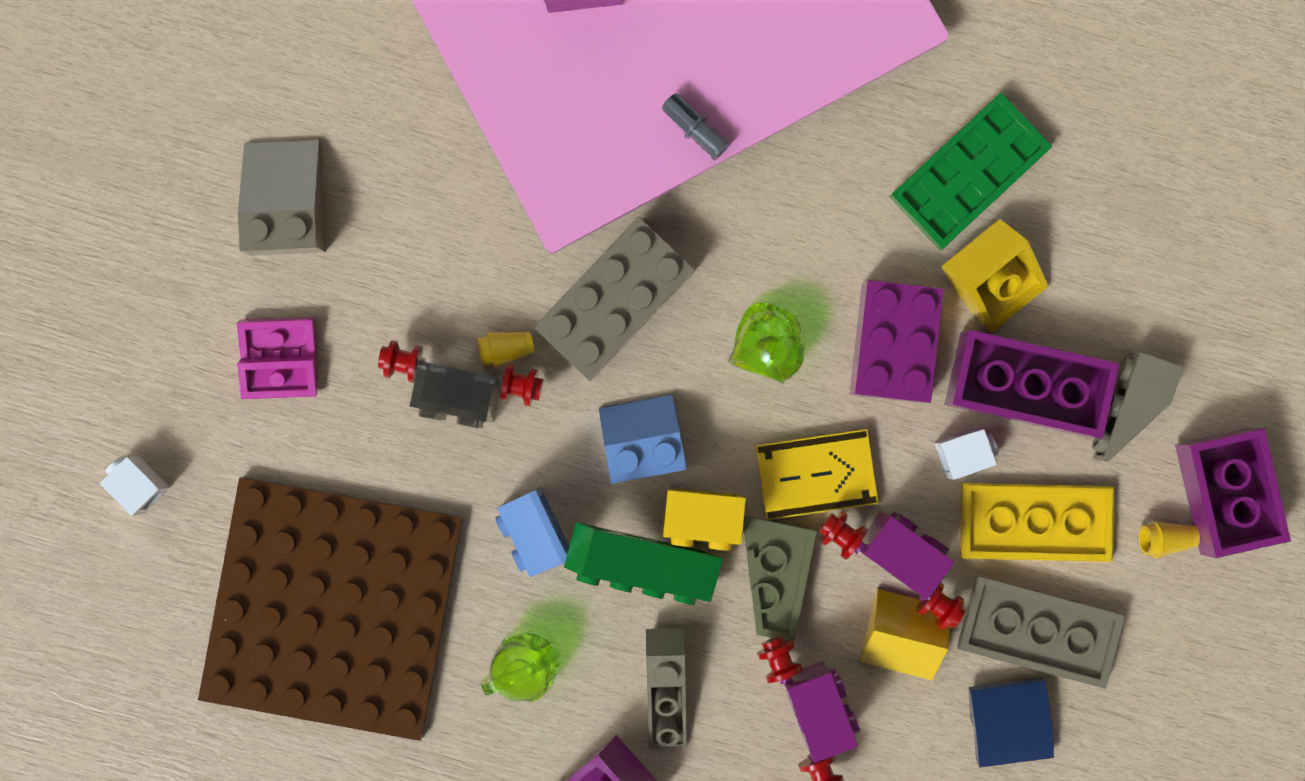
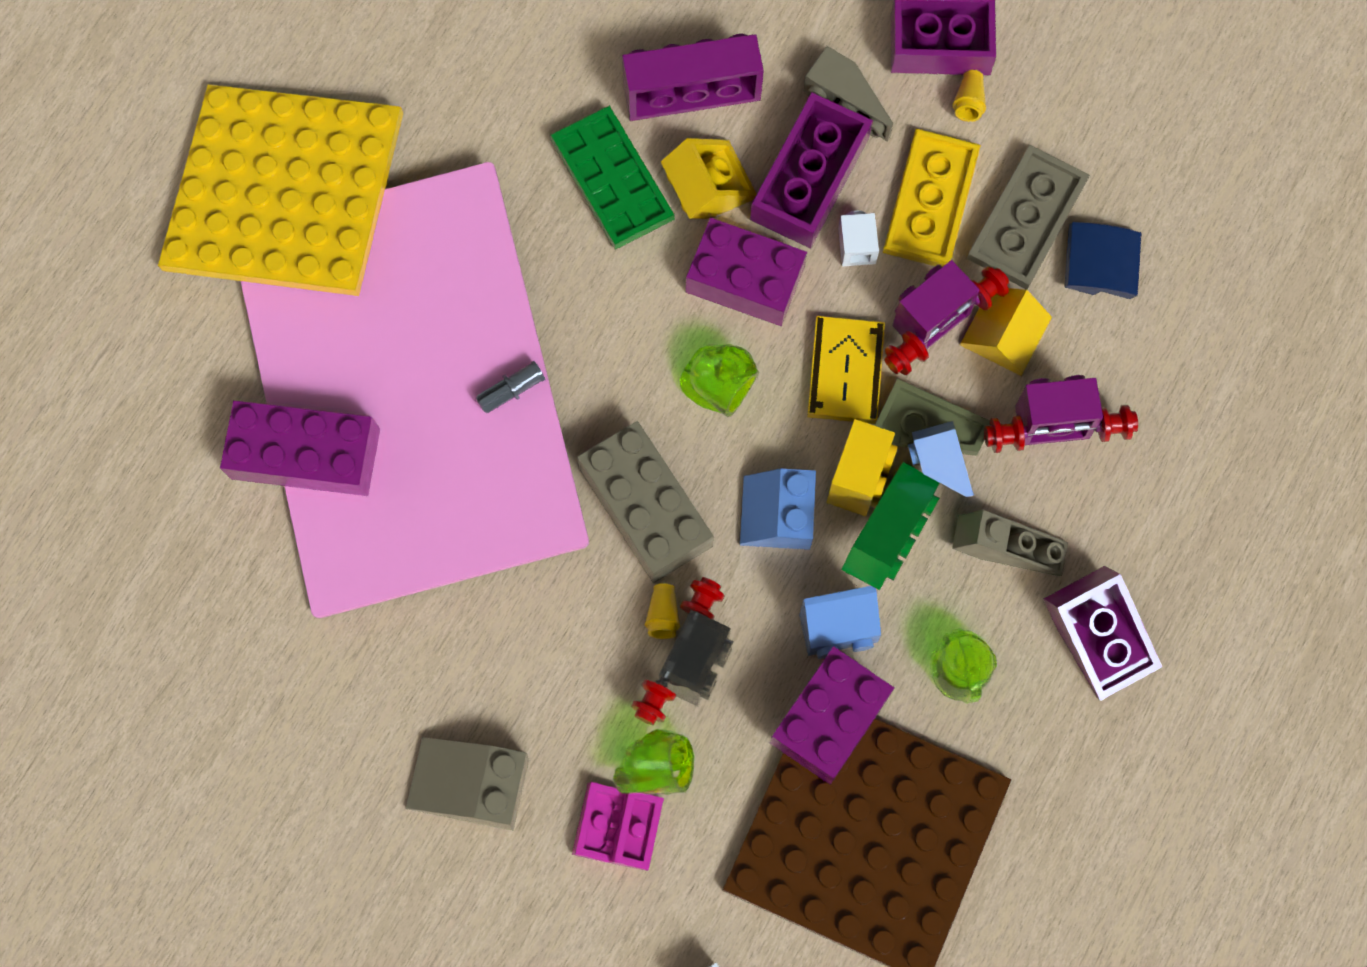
camera: 80 degrees left, 15 degrees down
(339, 374) = (650, 763): none -> clear neon green helmet
(429, 546) = (831, 715): none -> magenta brick
(737, 597) = (941, 457): none -> slope
(1107, 227) = (692, 76): none -> magenta brick

